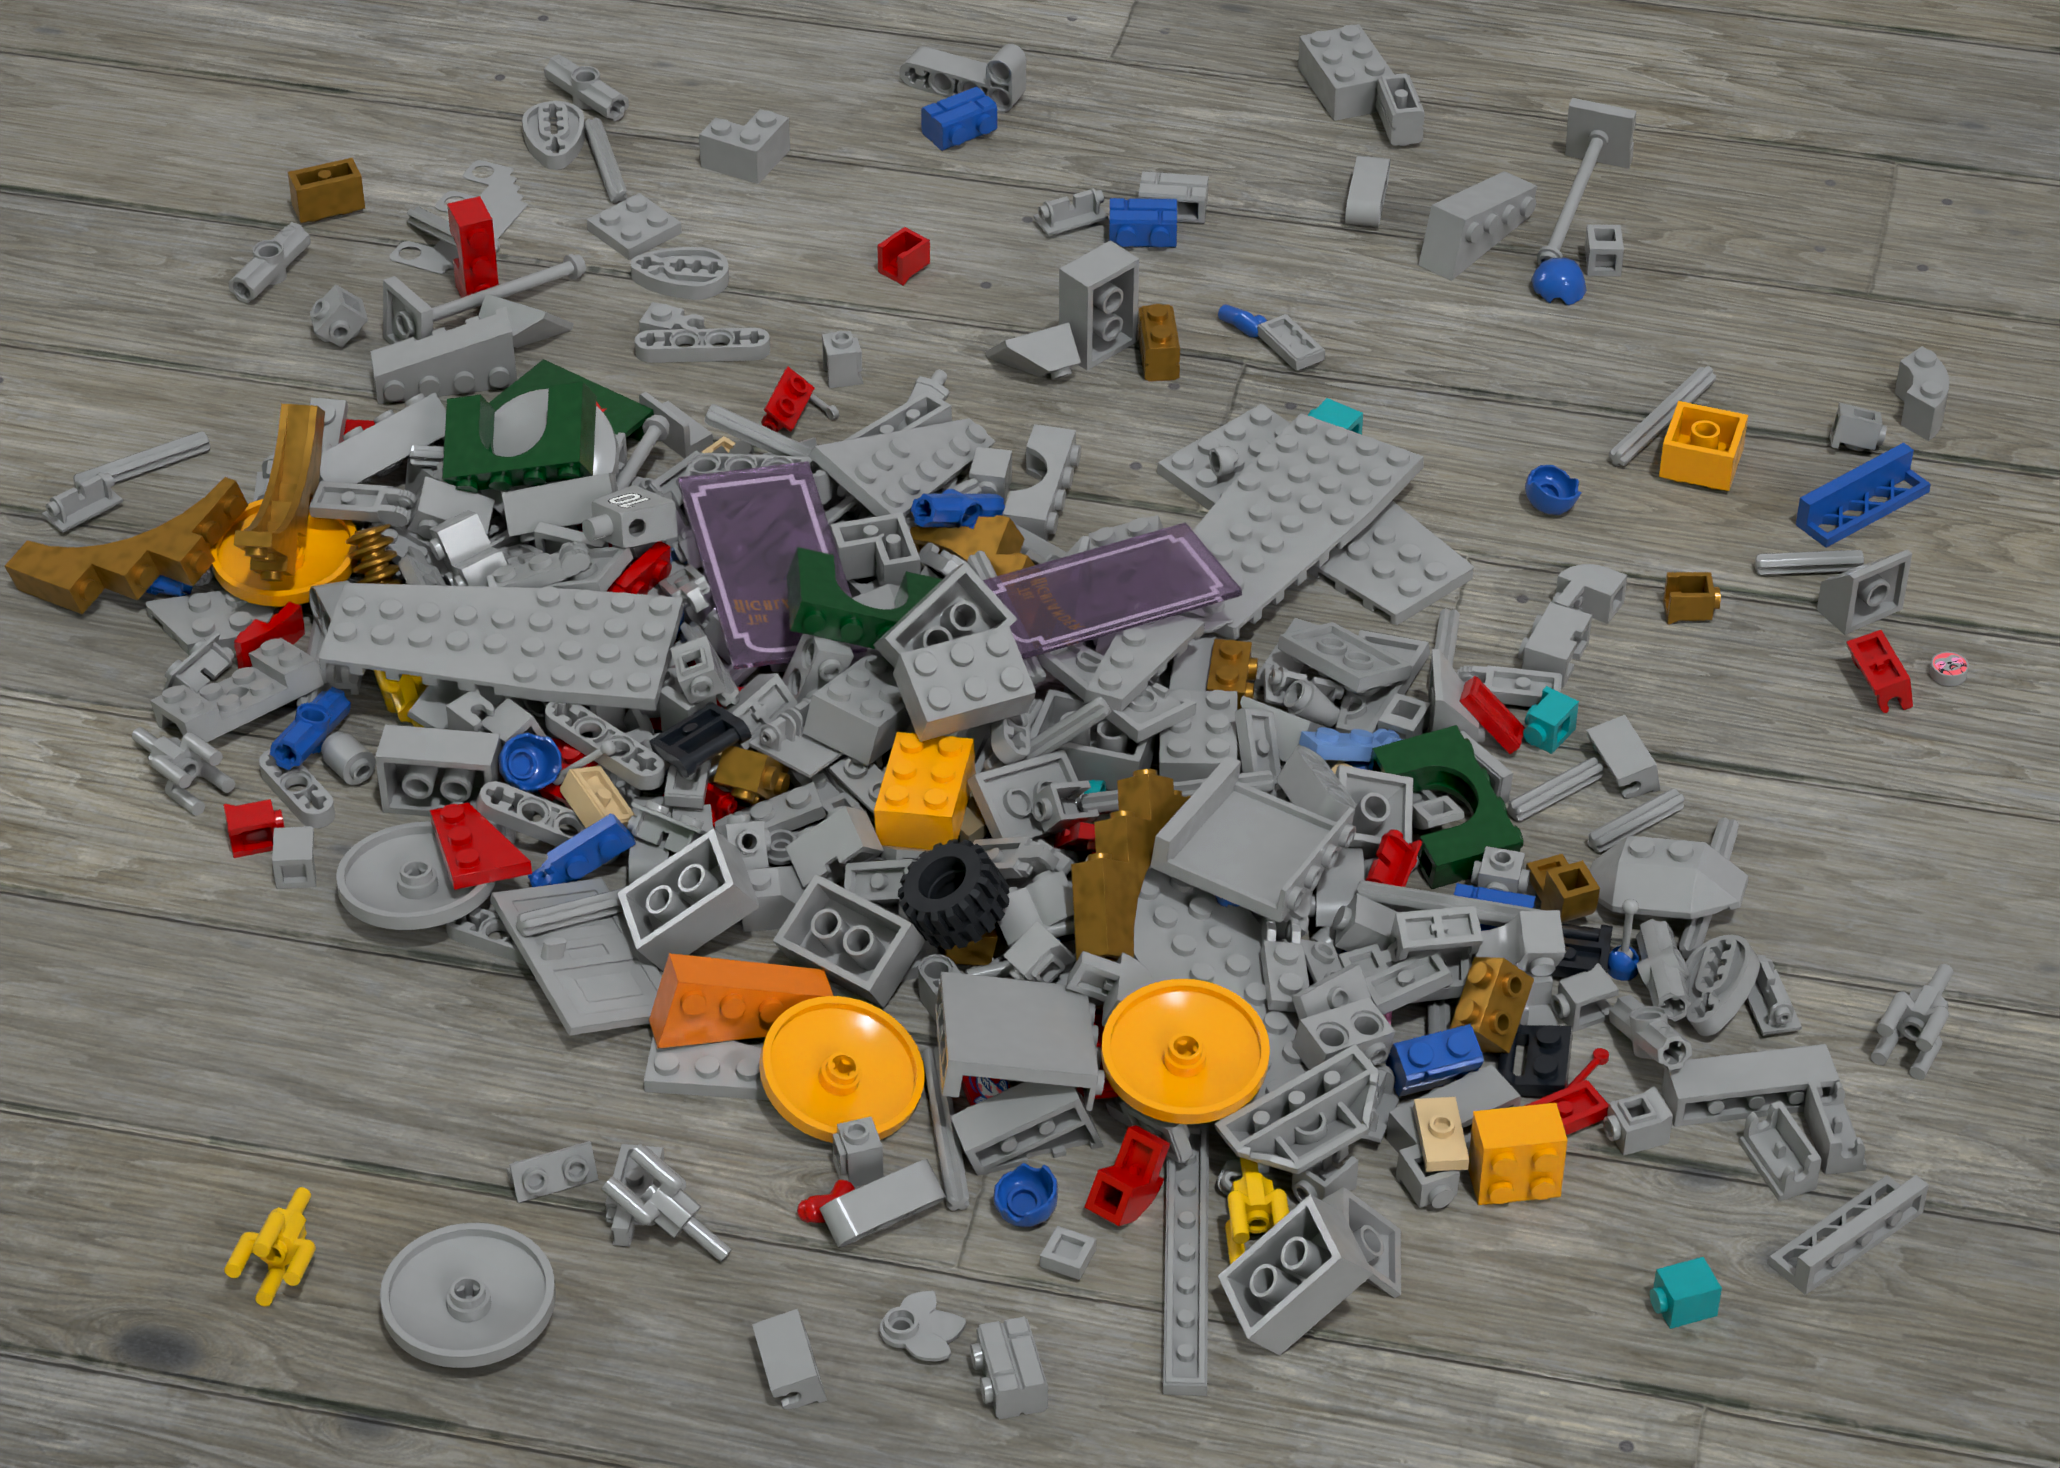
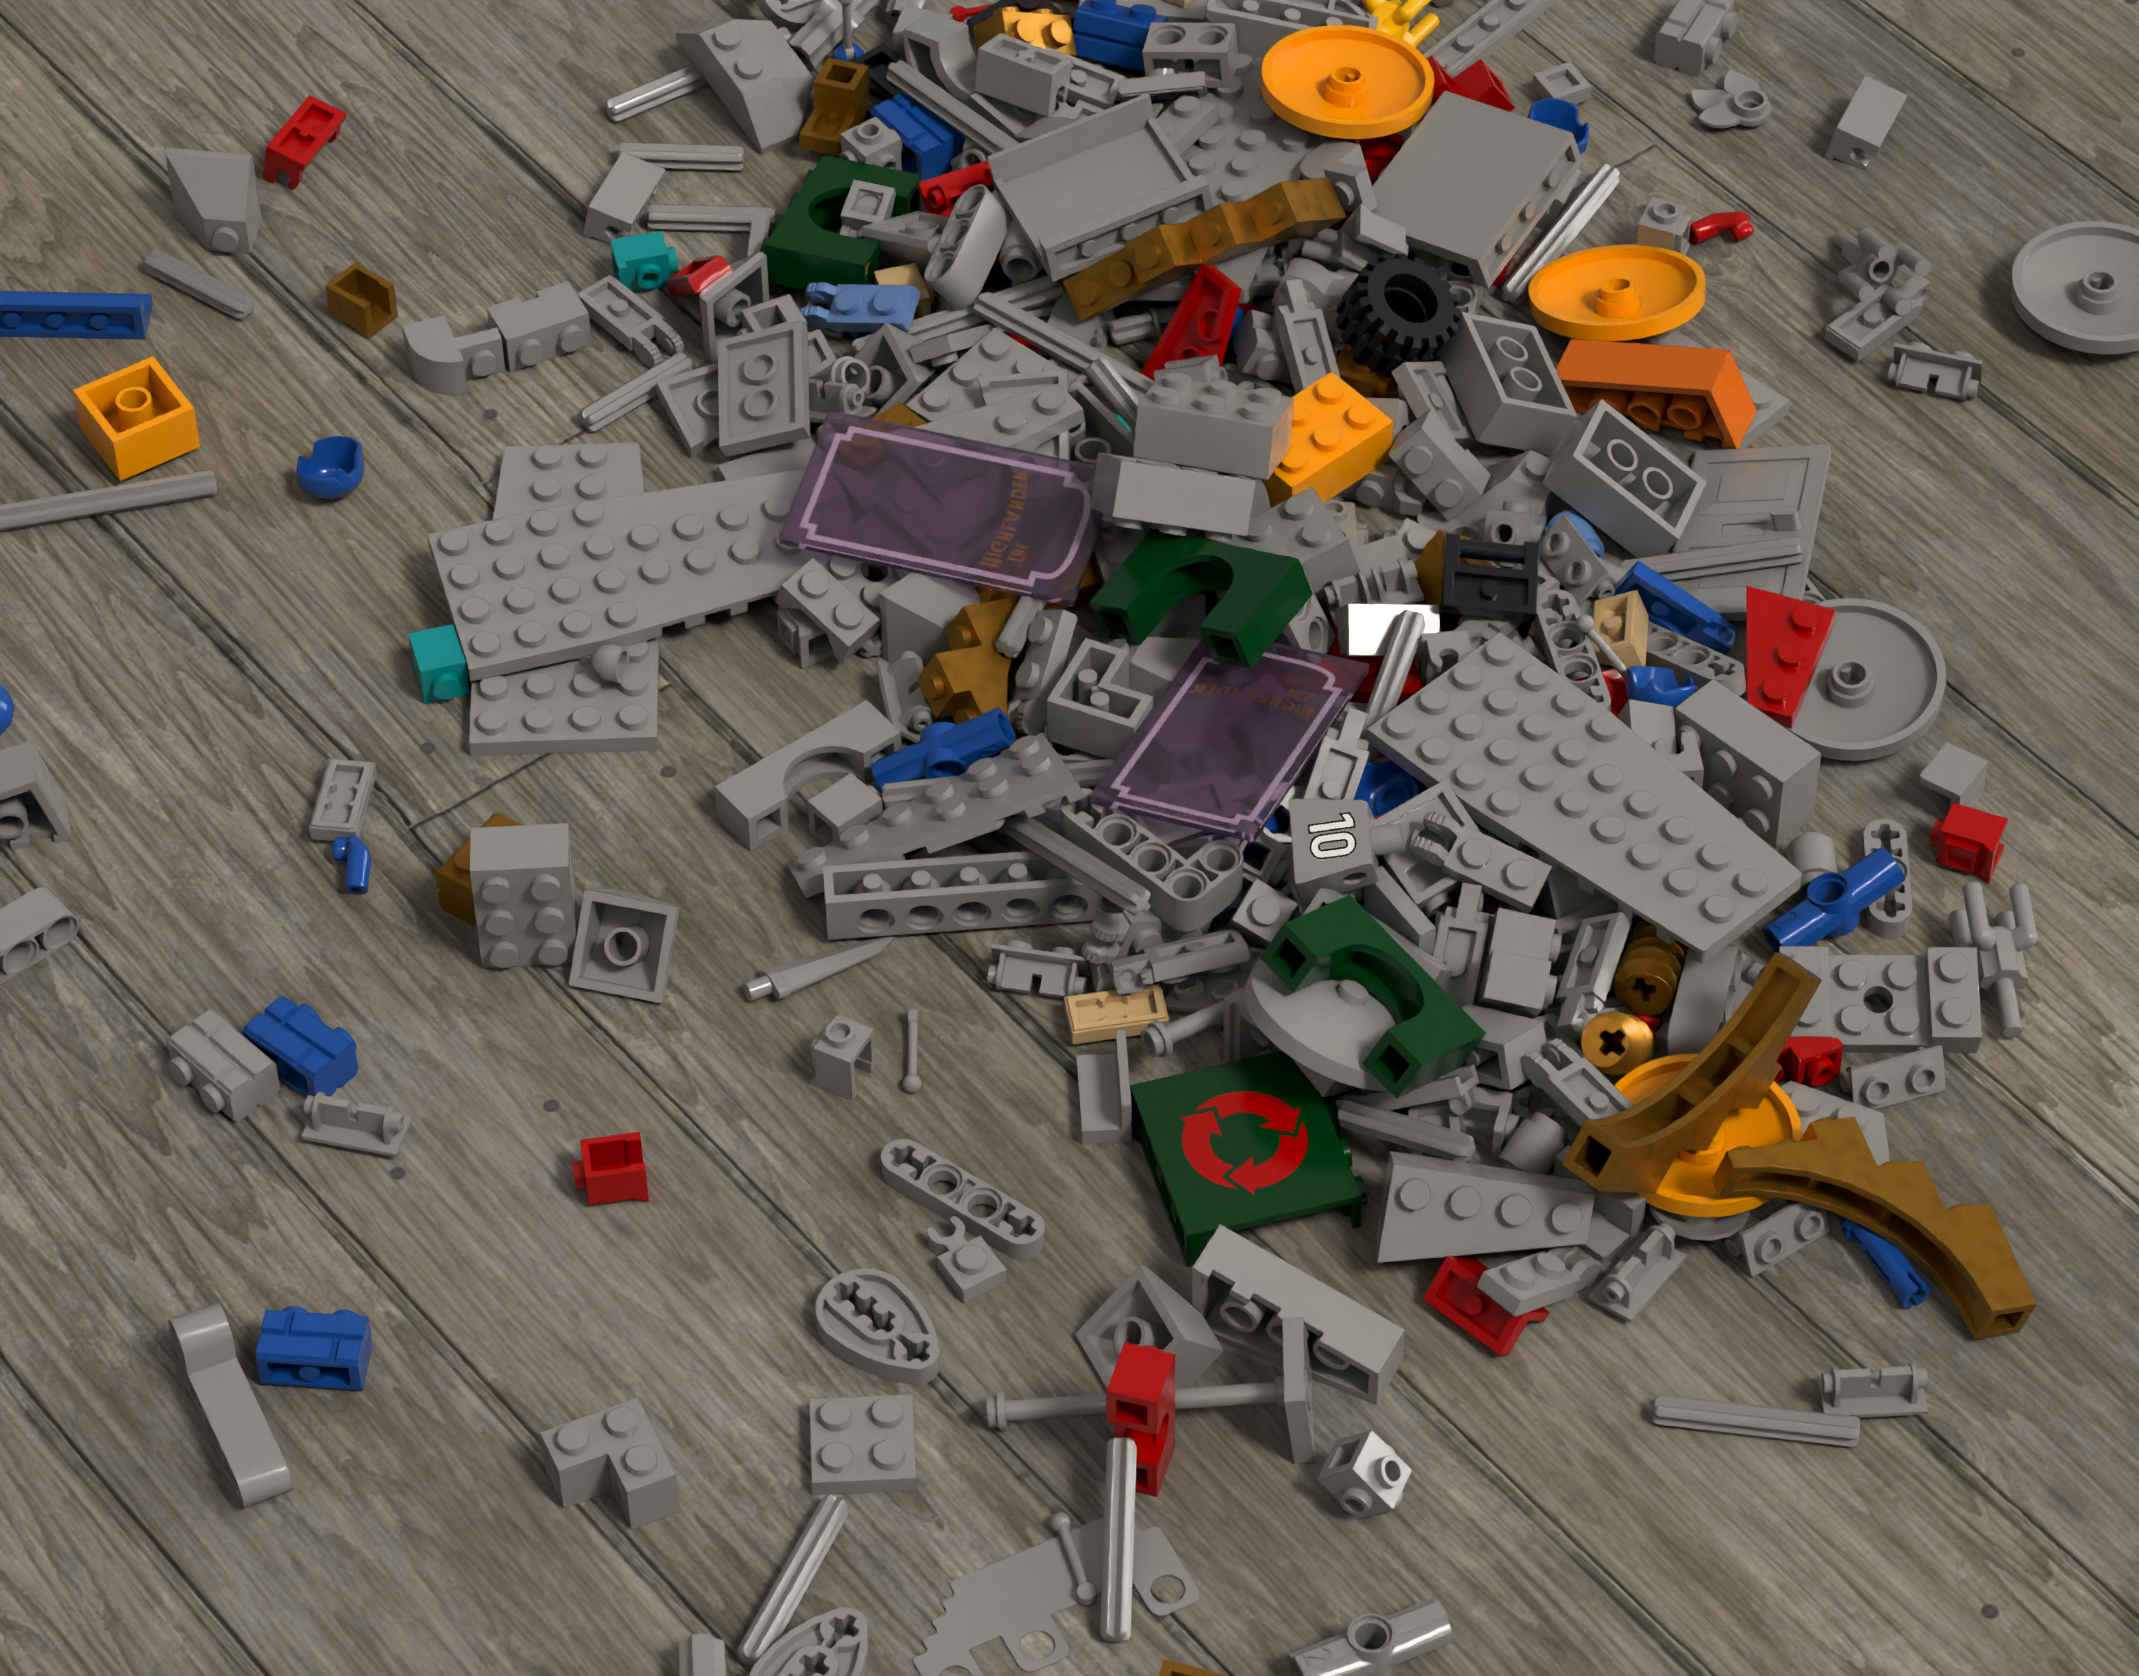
camera: 140 degrees left, 5 degrees up
(703, 678) = (1438, 619): light grey window -> none
(787, 401) = (942, 1047): red hinge -> none
(882, 1203) = (1702, 176): light grey beam -> none
(1949, 668) = (231, 130): light grey tile -> none

